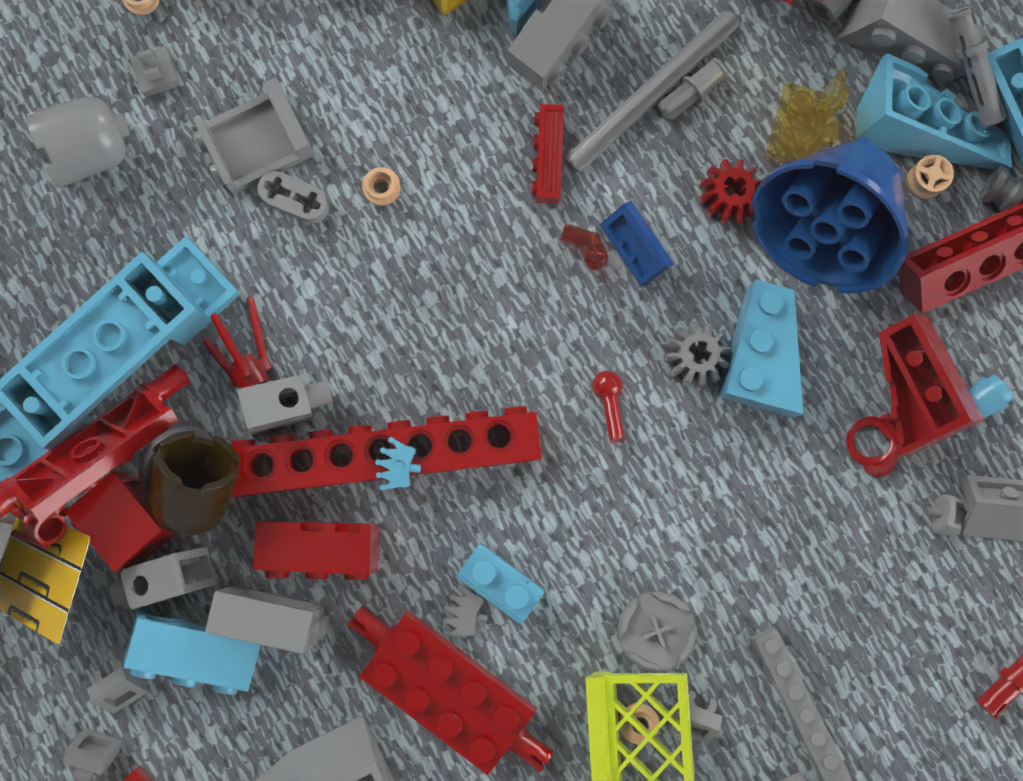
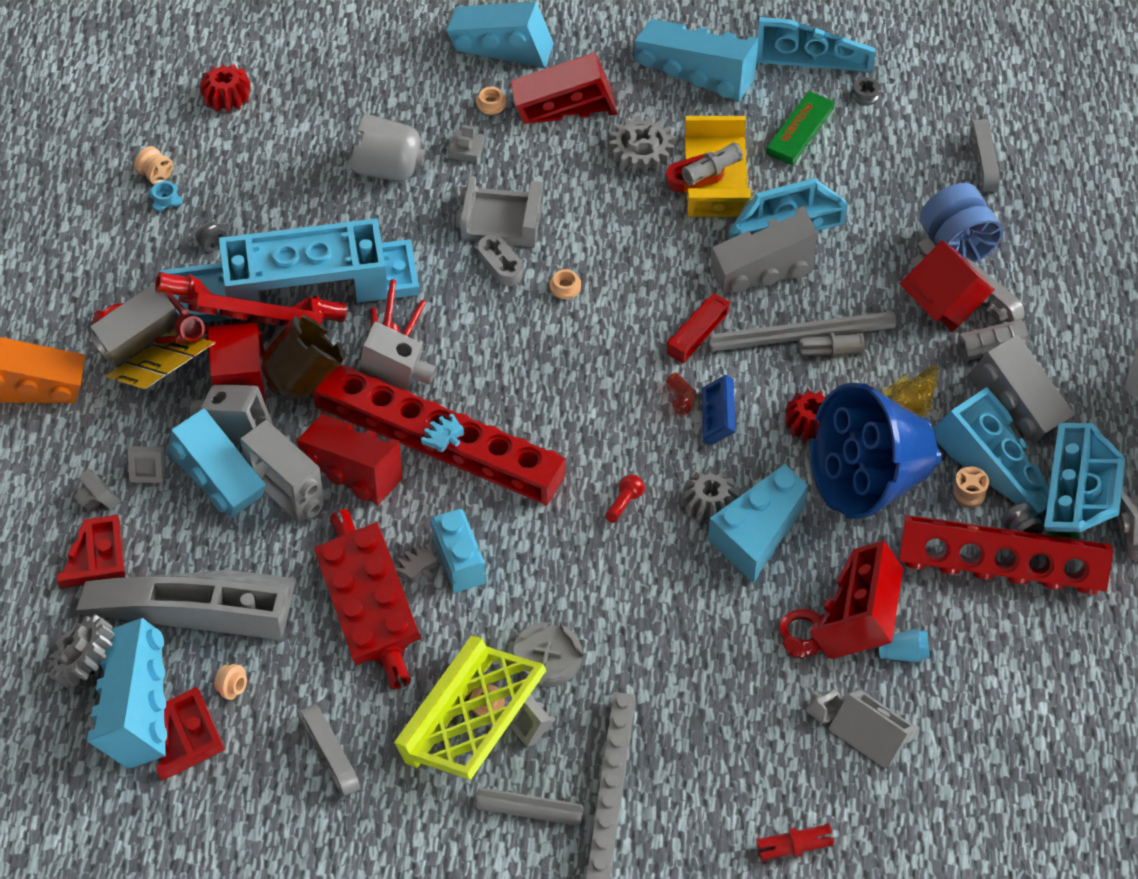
camera: 35 degrees right, 30 degrees down
(977, 66) = (1047, 417): light grey pin -> none

